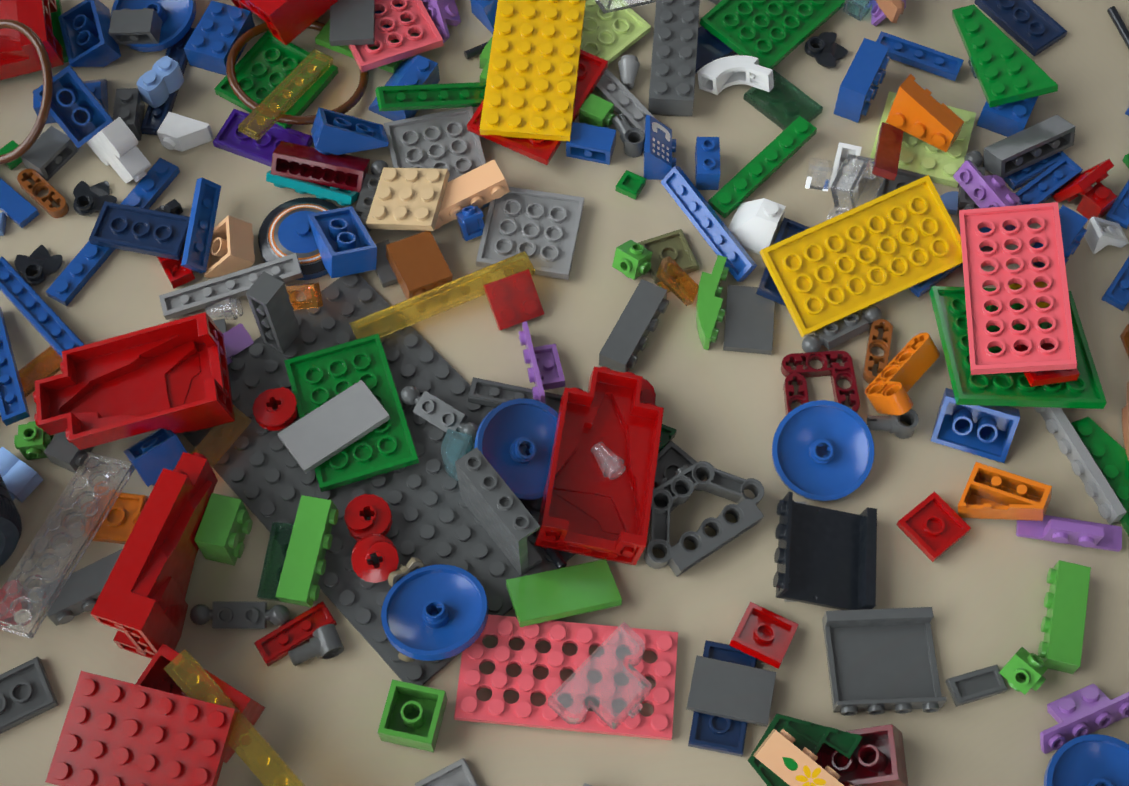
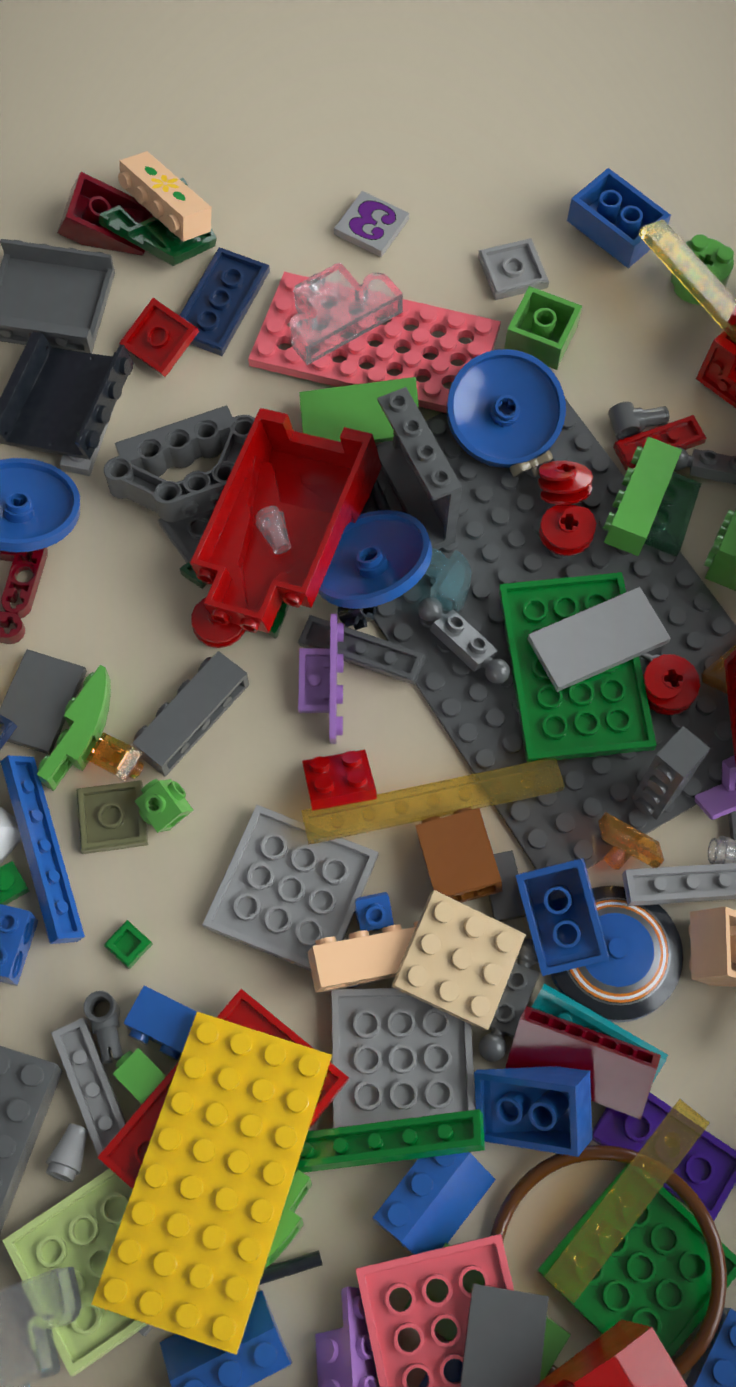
camera: 170 degrees left, 5 degrees up
(658, 149) = (73, 976): blue slope -> none
(731, 691) = (211, 294): dark grey tile -> none

